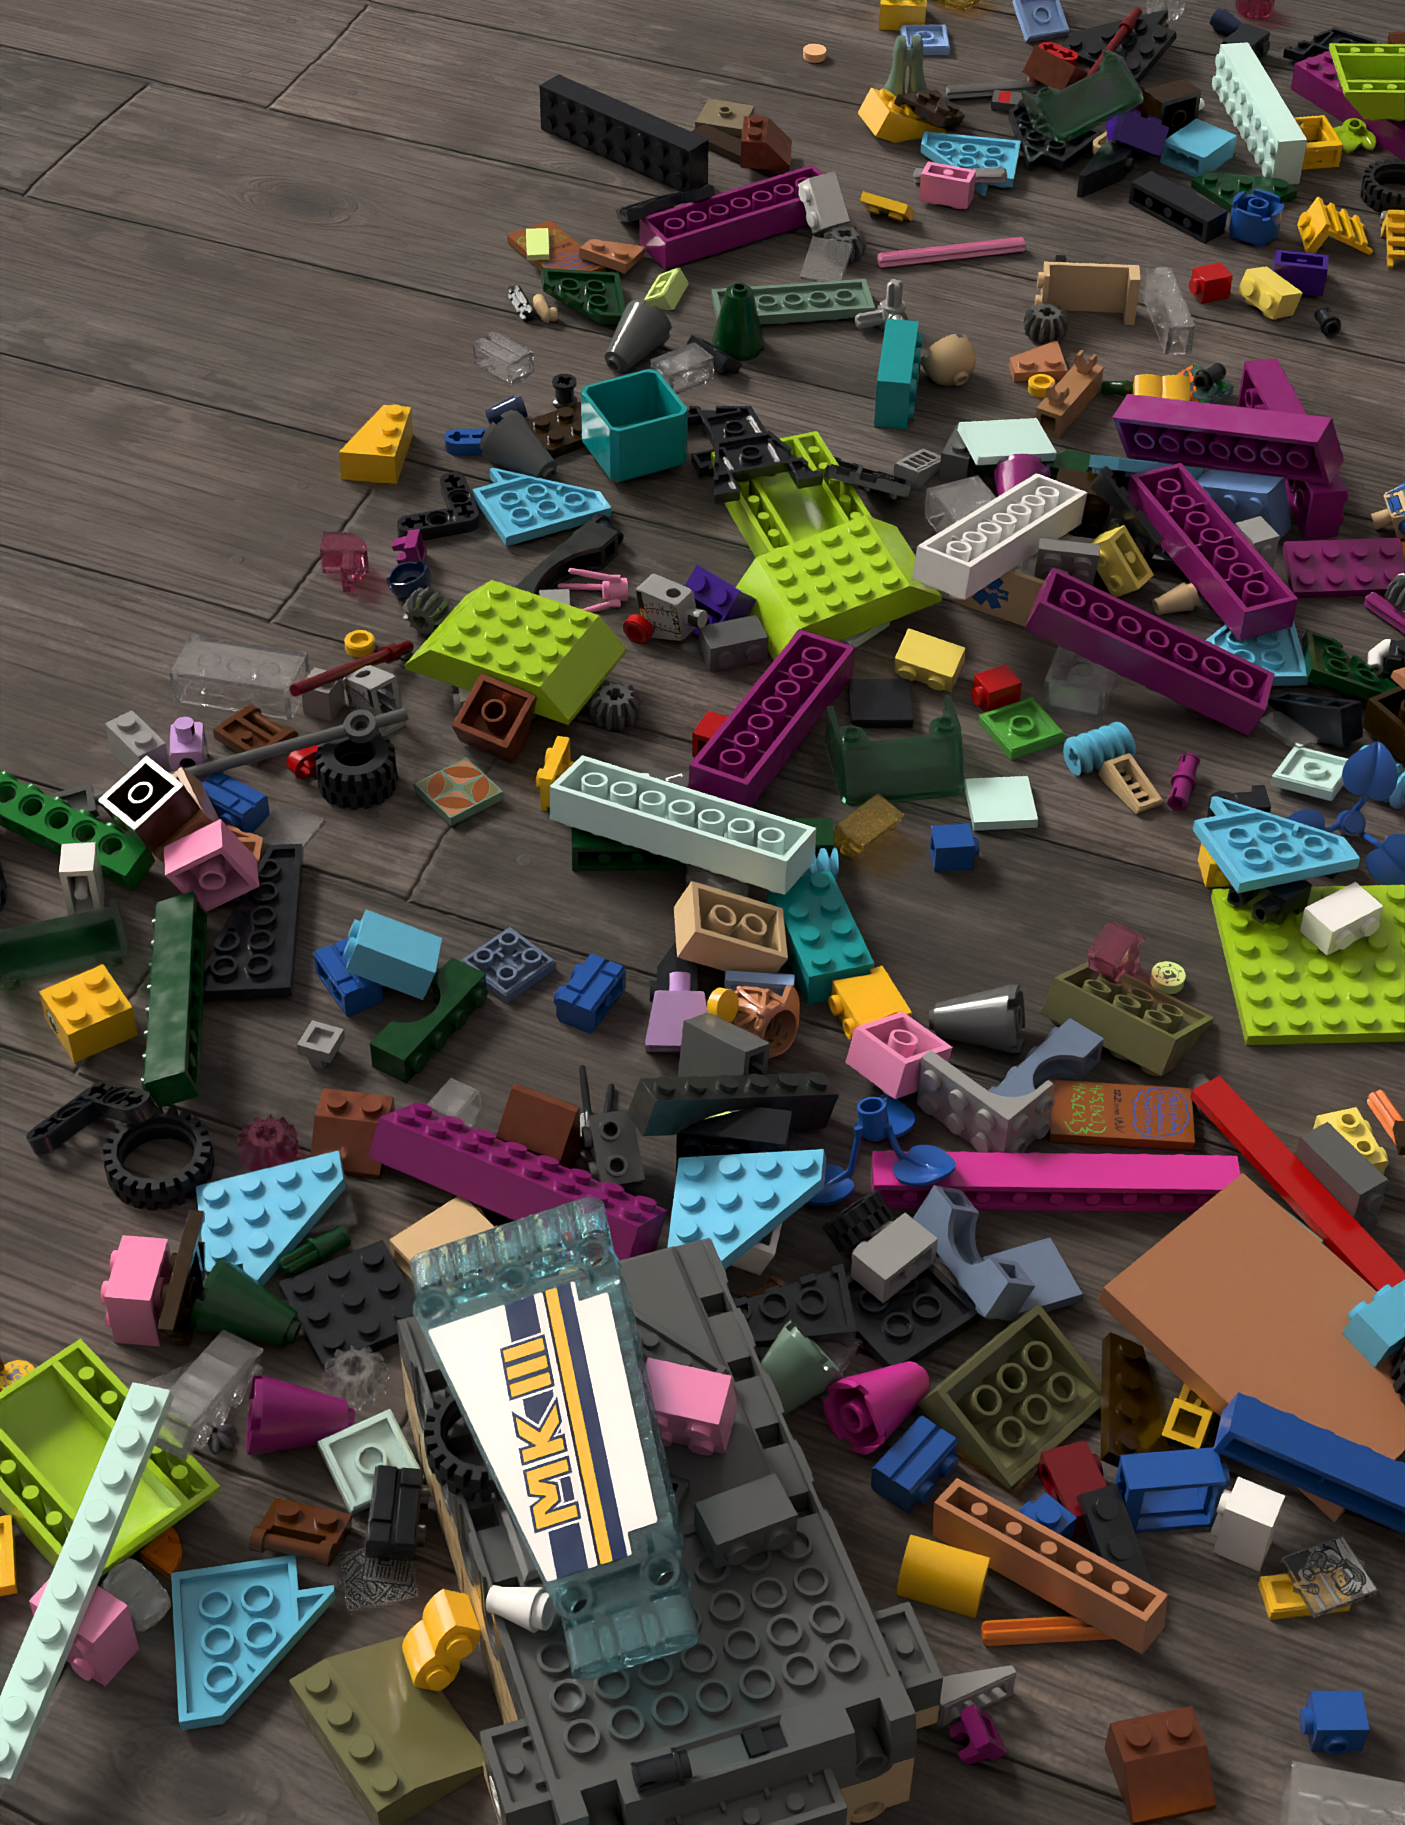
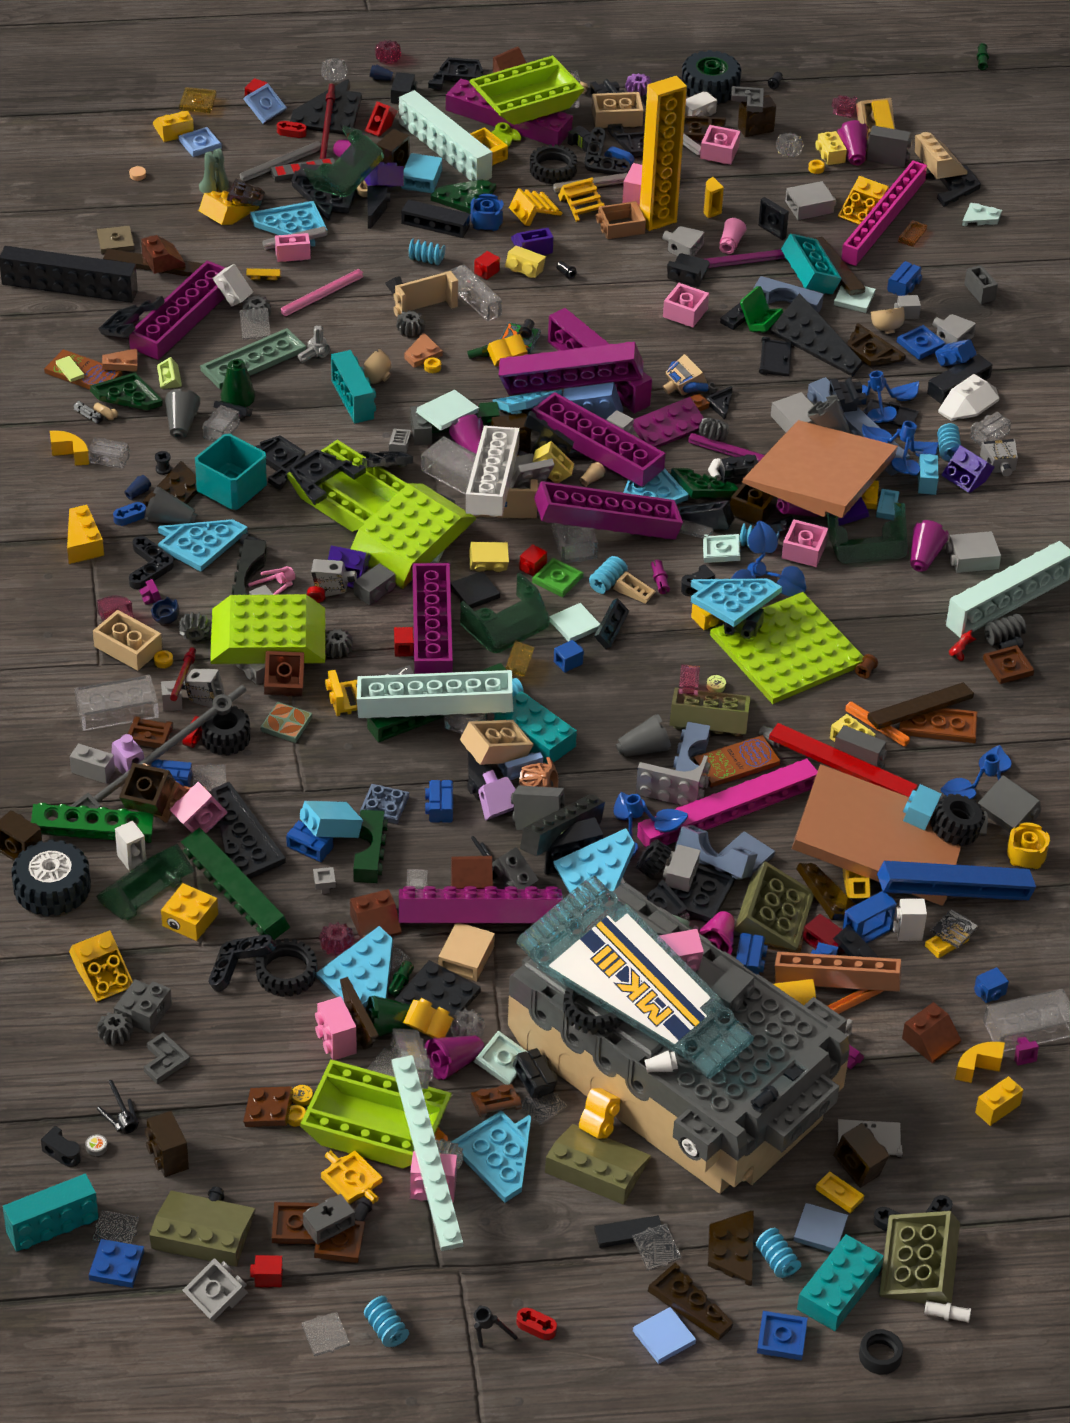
camera: 30 degrees left, 0 degrees up
(288, 1339) = (427, 1019): none -> yellow brick
(323, 598) = (127, 640): none -> tan brick
(458, 330) = (67, 443): none -> yellow brick
(723, 1004) = (522, 778): yellow tile -> none
(865, 999) = (585, 754): yellow hips -> none
(891, 1053) = (617, 772): bright pink brick -> none
(1051, 70) = (303, 145): copper slope -> none
(1055, 823) = (611, 623): none -> black plate
(1070, 395) = (456, 366): medium nougat brick -> none
(1133, 242) = (426, 253): none -> medium azure piece
(1190, 66) = (380, 119): none -> red slope
(1341, 918) = (785, 621): white brick -> none

